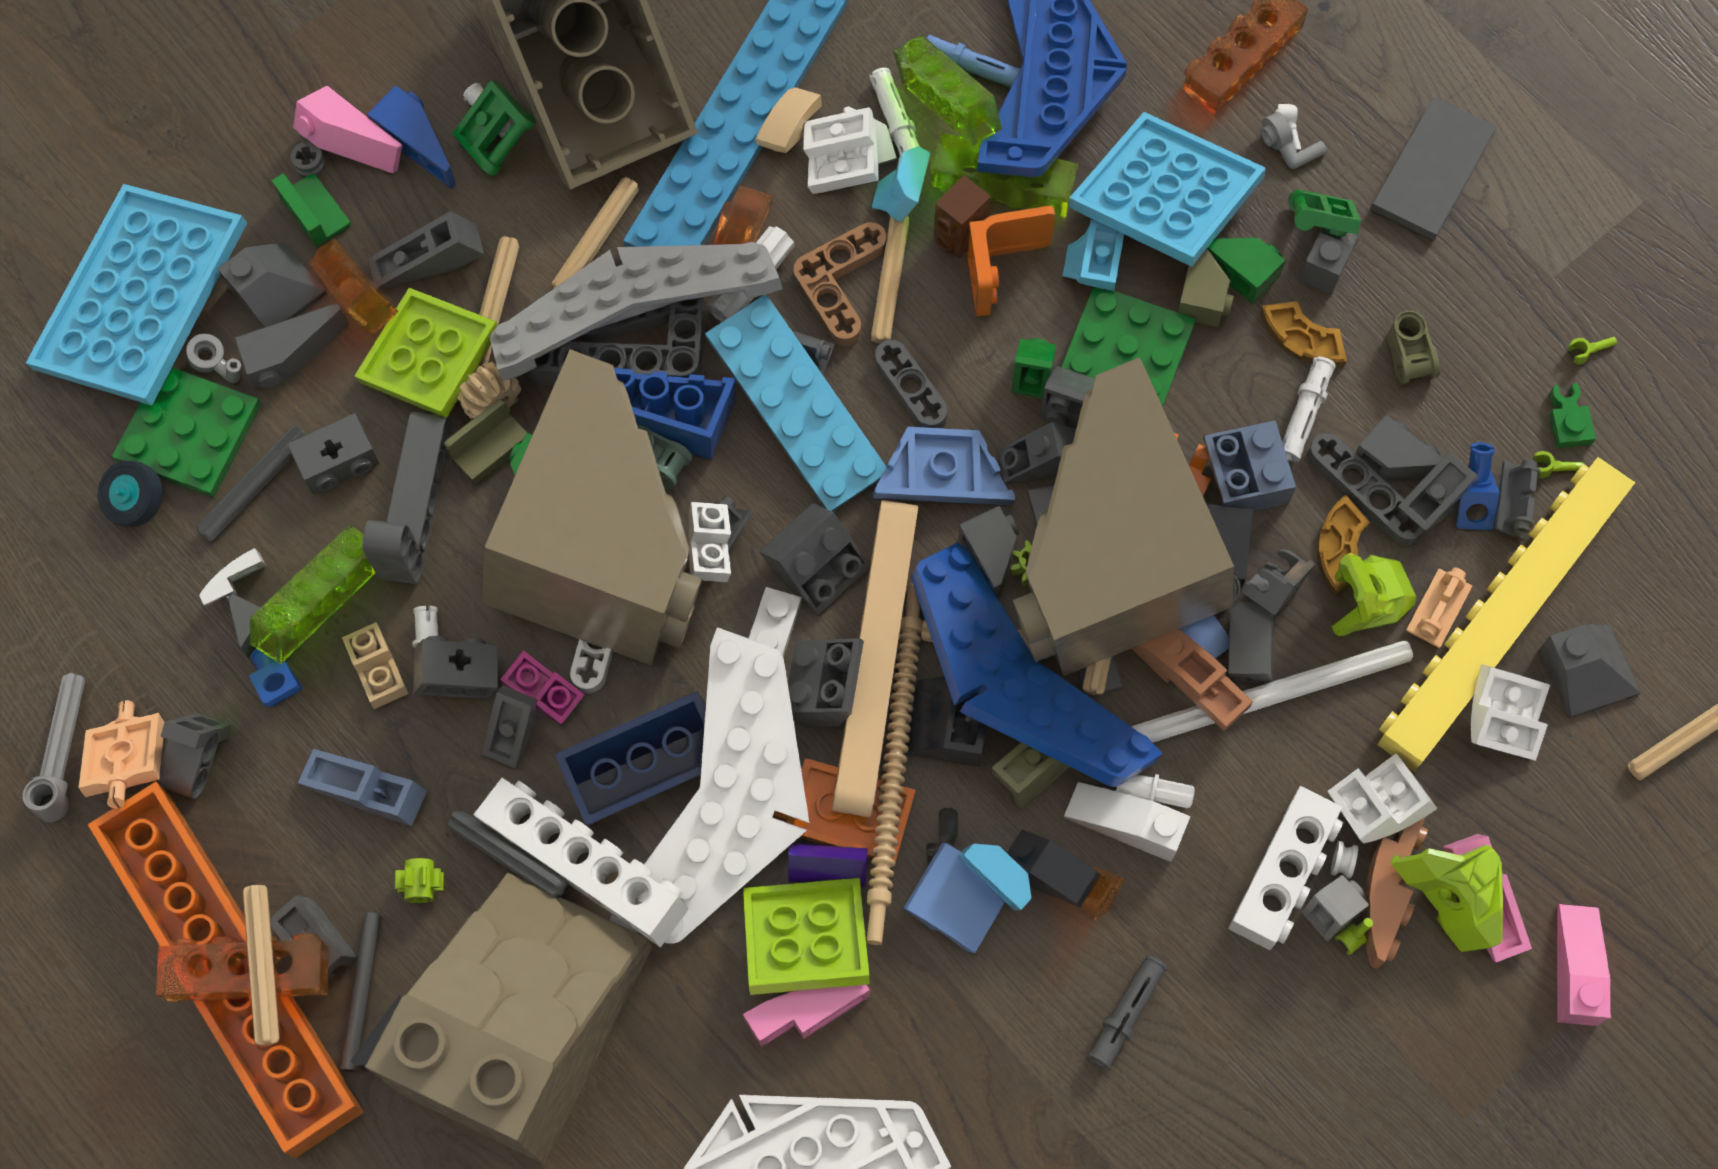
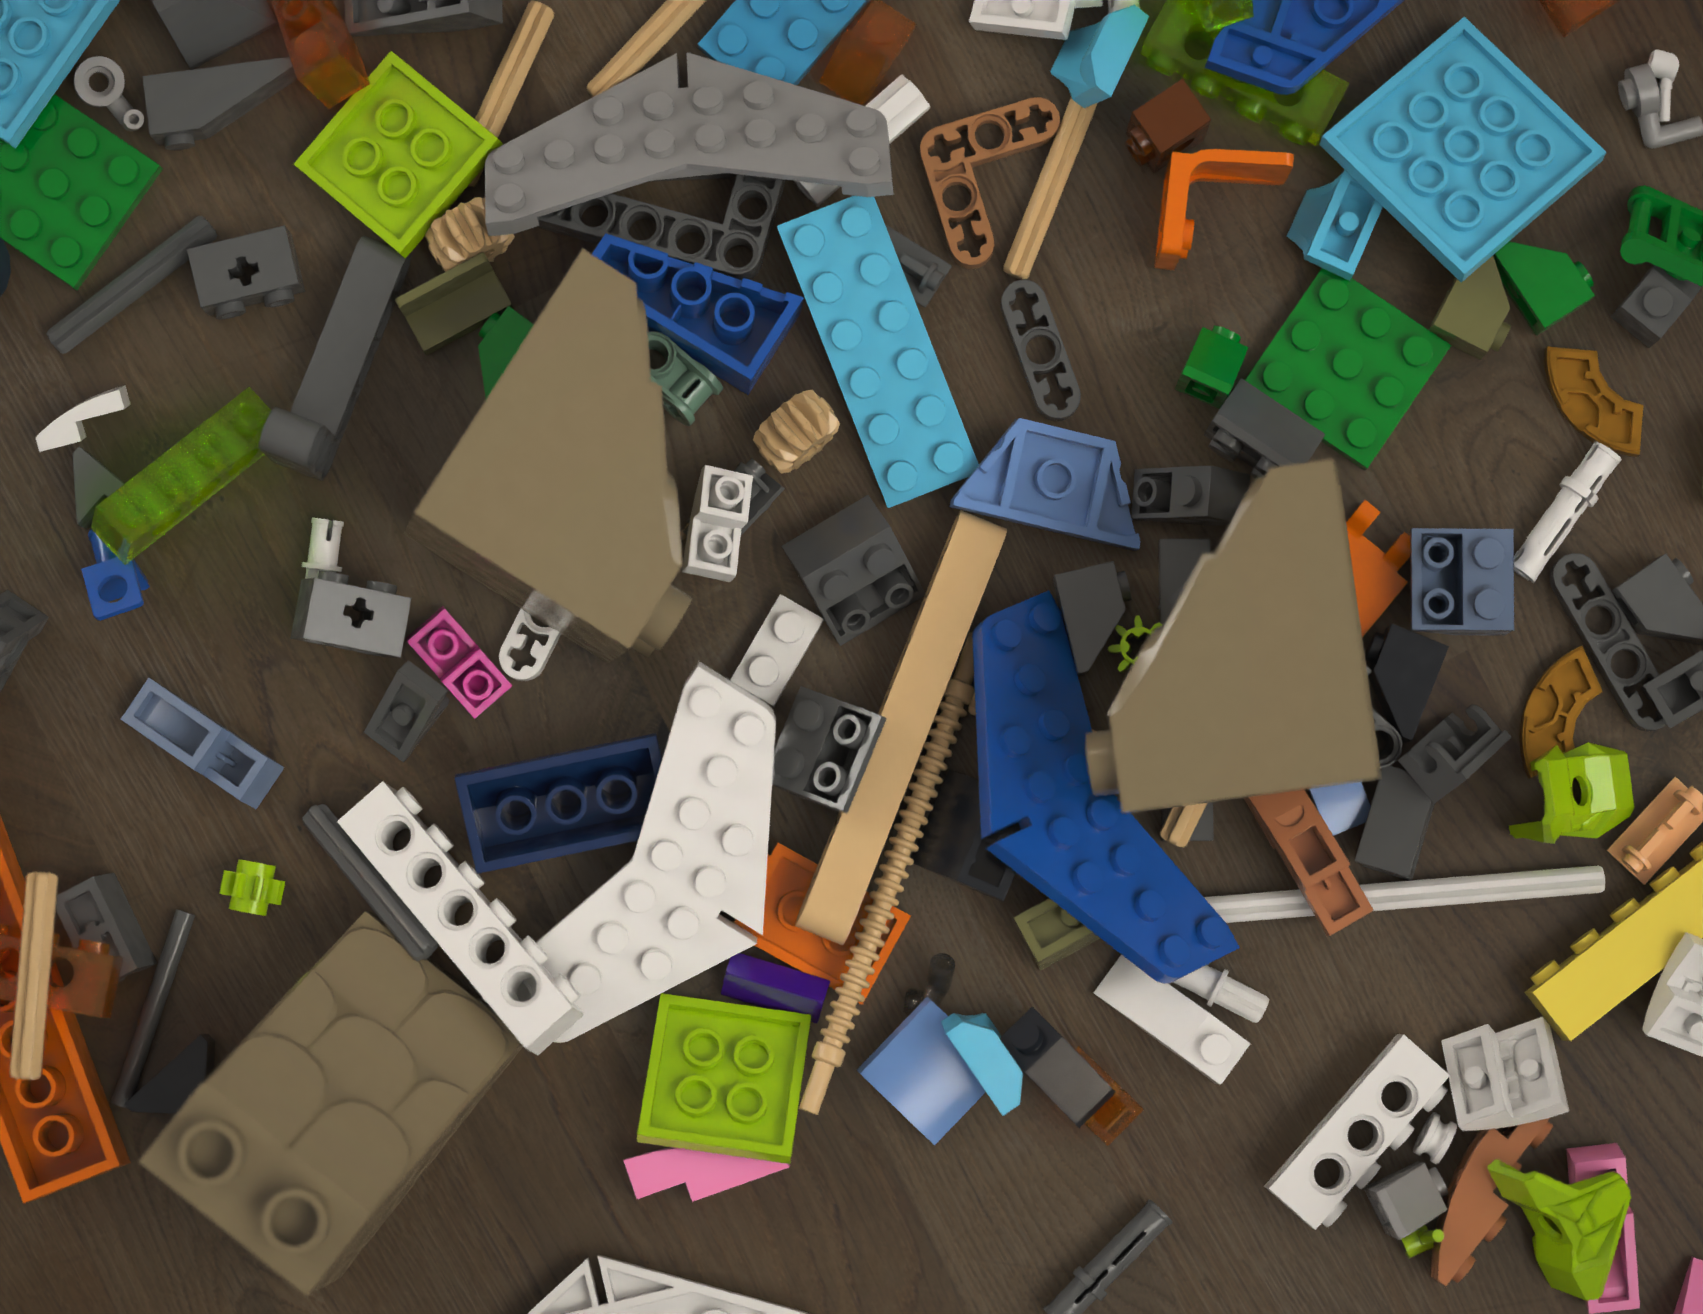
camera: 15 degrees right, 15 degrees up
(375, 665) = (248, 580): tan slope -> none
(751, 471) = (796, 431): none -> tan gear

